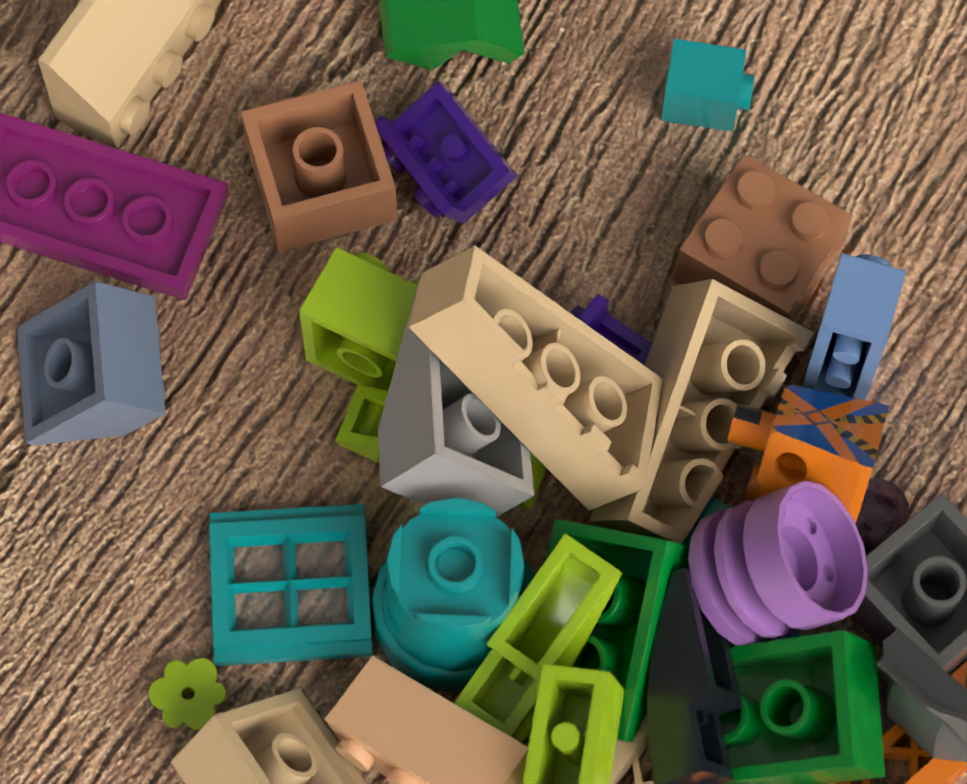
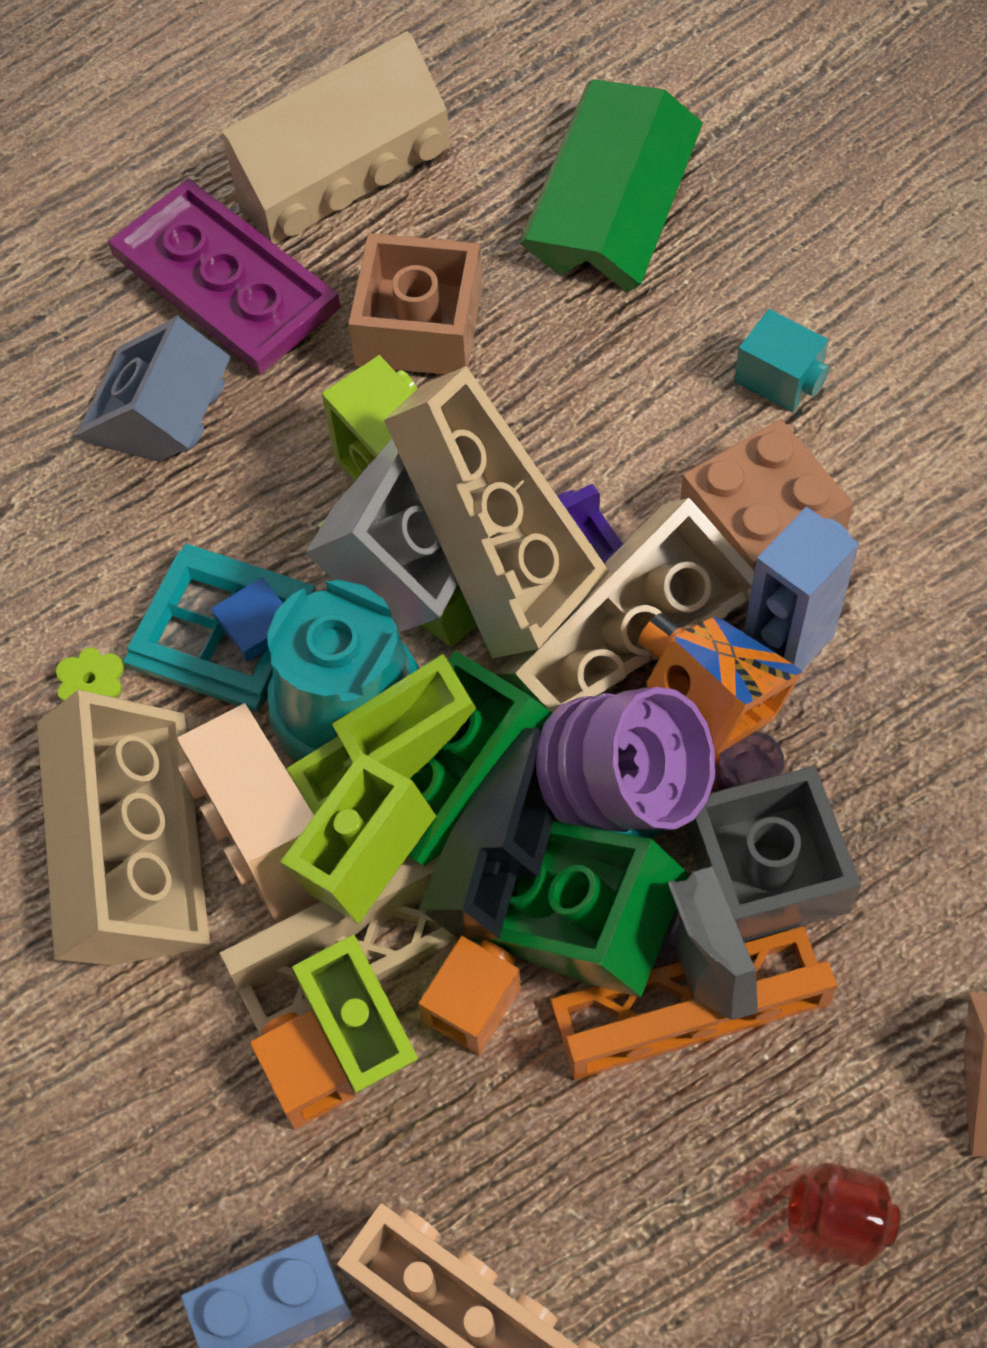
camera: 30 degrees right, 5 degrees down
(330, 565) = (247, 617): none -> blue tile
(445, 155) = (528, 337): dark purple bracket -> none

